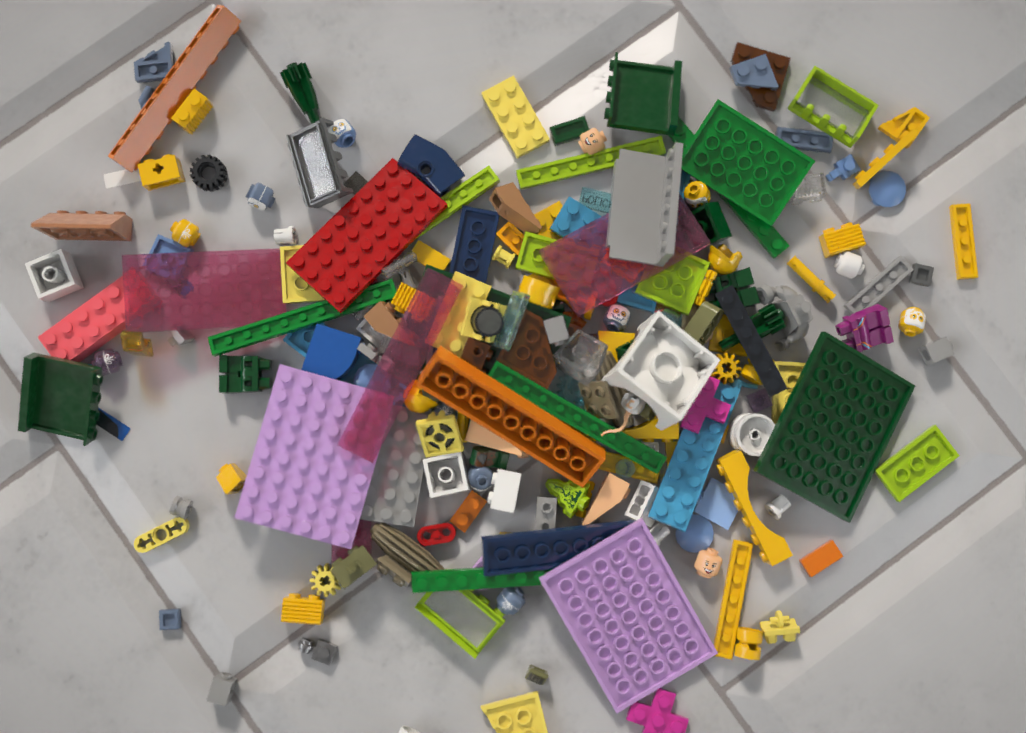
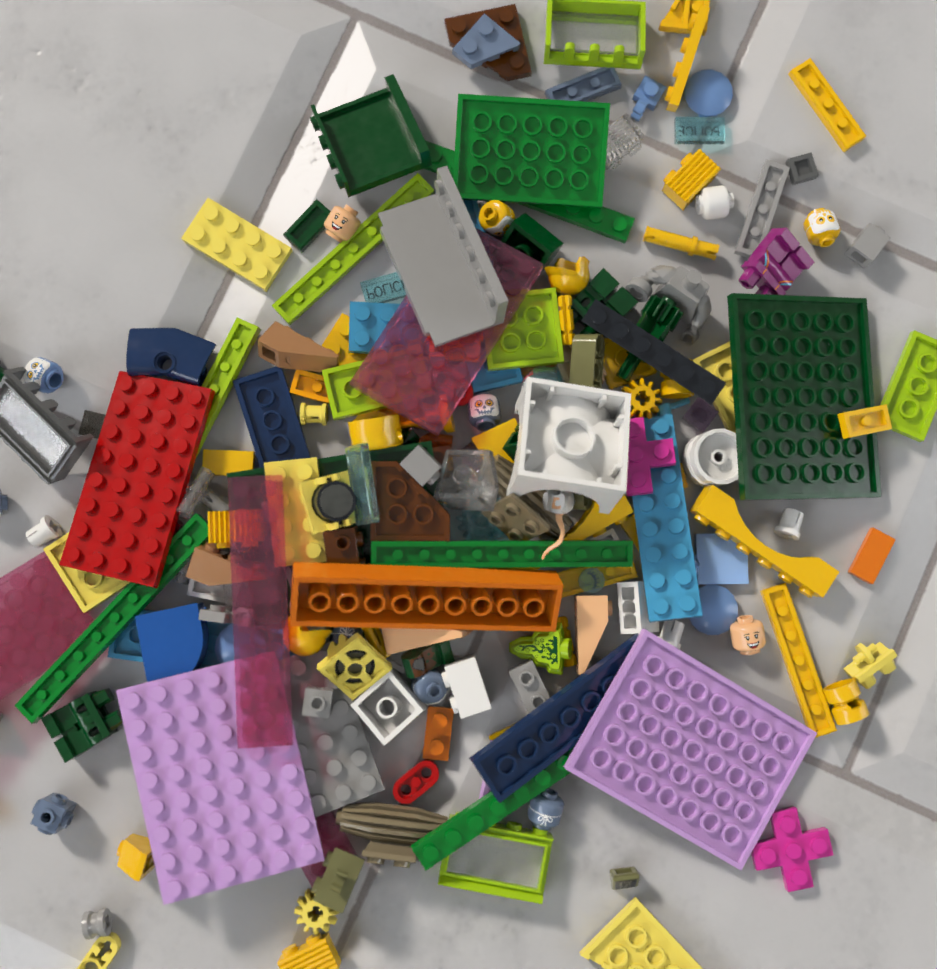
camera: 25 degrees left, 0 degrees up
(198, 424) = (53, 813): none -> sand blue brick
(404, 444) = (317, 701): none -> light grey brick
(866, 211) = (699, 130): none -> clear light blue tile
(866, 466) = (864, 421): none -> yellow plate

